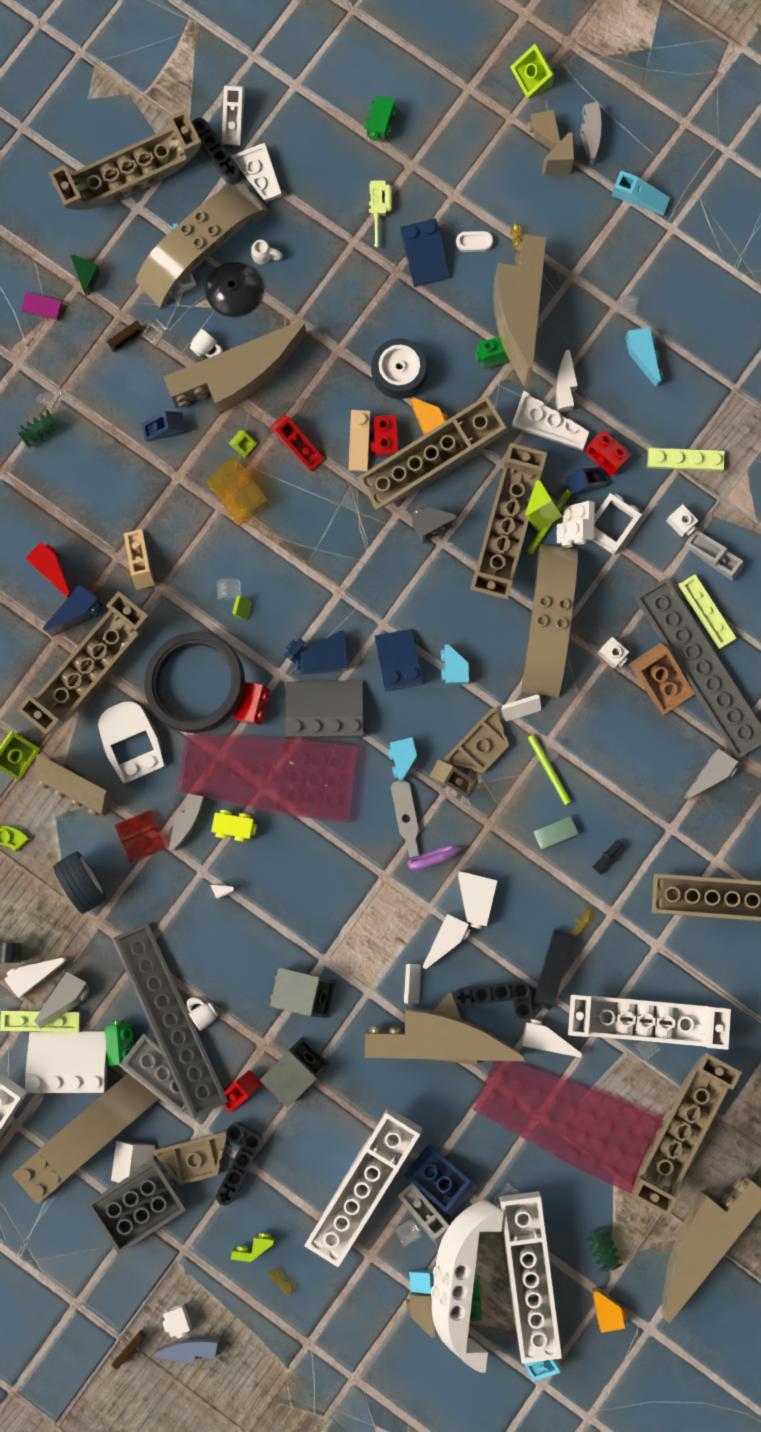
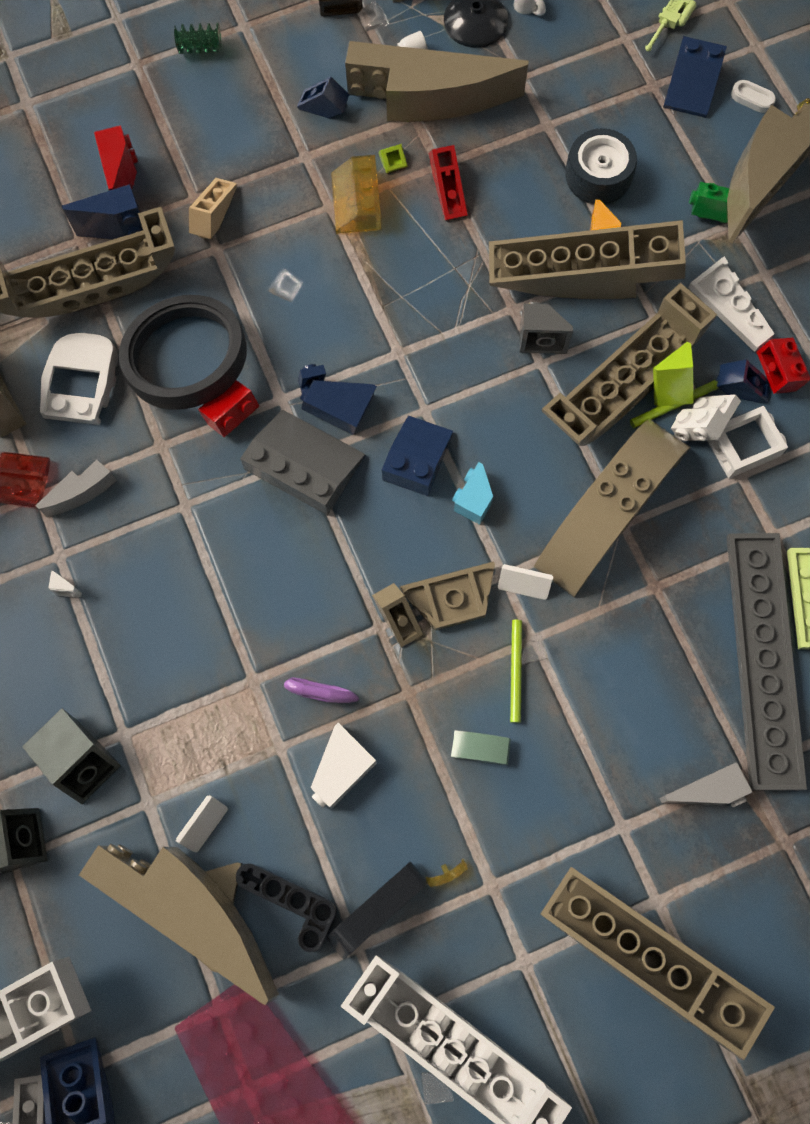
camera: 30 degrees right, 10 degrees down
(49, 398) = (229, 23): clear tile -> none
(239, 827) = (126, 527): neon yellow brick -> none
(242, 608) = (284, 309): lime slope -> none
(271, 774) = (203, 496): clear pink wing -> none
(359, 440) = (517, 210): tan slope -> none
(385, 436) = (546, 219): red brick -> none
(404, 757) = (357, 558): medium azure slope -> none
(404, 806) = (322, 614): light grey piece -> none
(449, 936) = (277, 794): white slope -> none
(542, 1038) = (315, 993): white slope -> none
(565, 384) = (775, 274): white slope -> none
(608, 857) = (527, 814): black axle -> none
(613, 653) = (668, 581): white brick -> none
(661, 678) = (710, 643): medium nougat slope -> none

